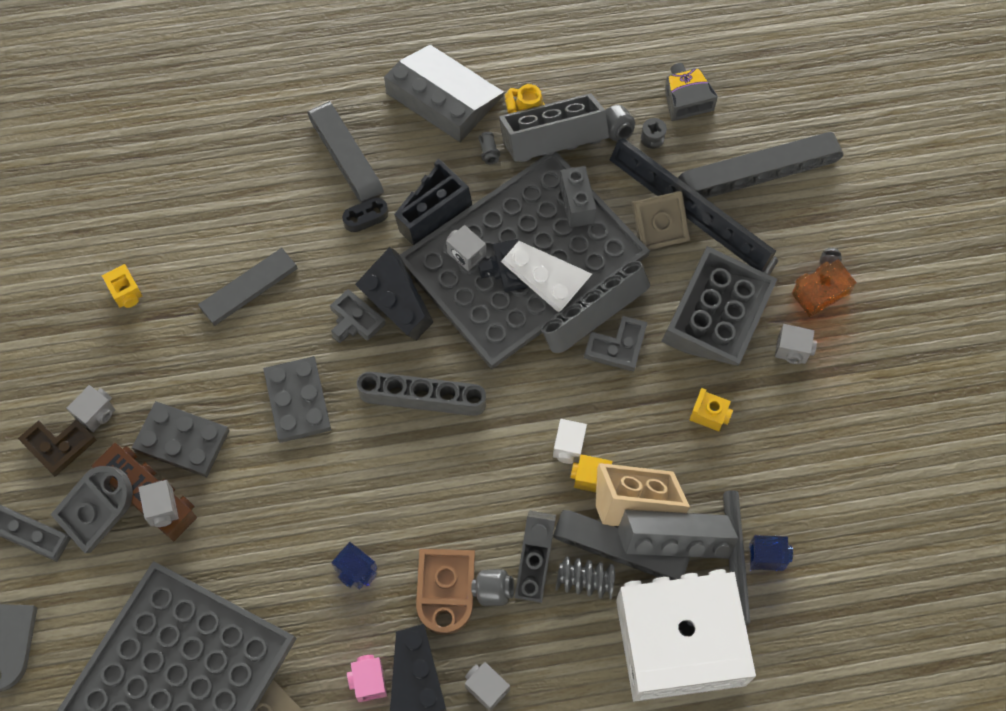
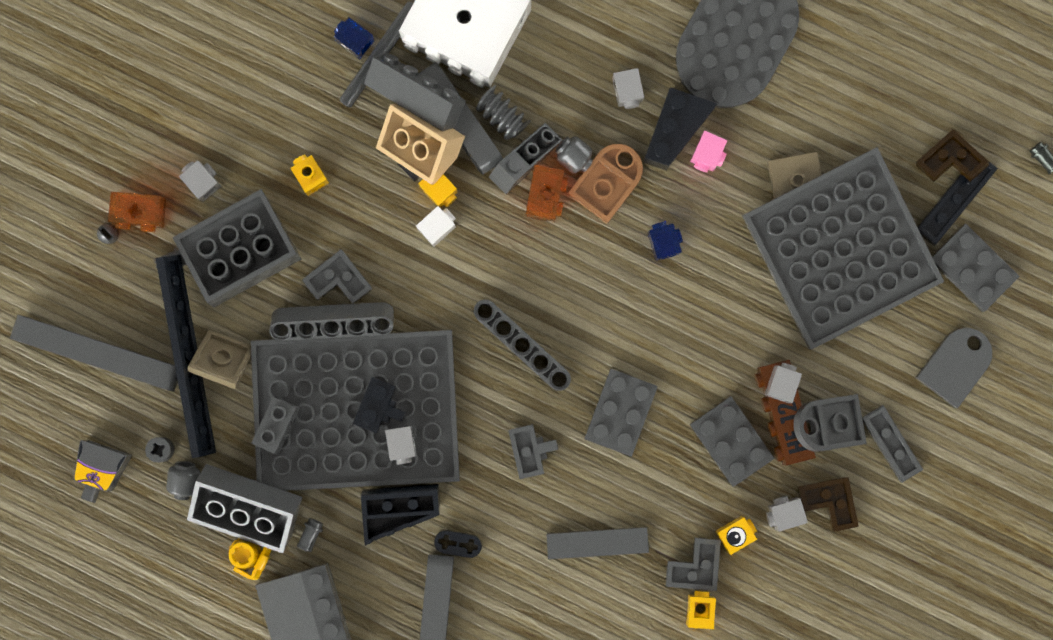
camera: 145 degrees left, 20 degrees up
(128, 364) = (737, 534): none -> yellow brick
(143, 314) = (700, 573): none -> dark grey plate
(394, 293) = (486, 442): black wedge -> none
(493, 518) = (551, 179): none -> clear orange brick
(545, 274) = (354, 371): white wing -> none

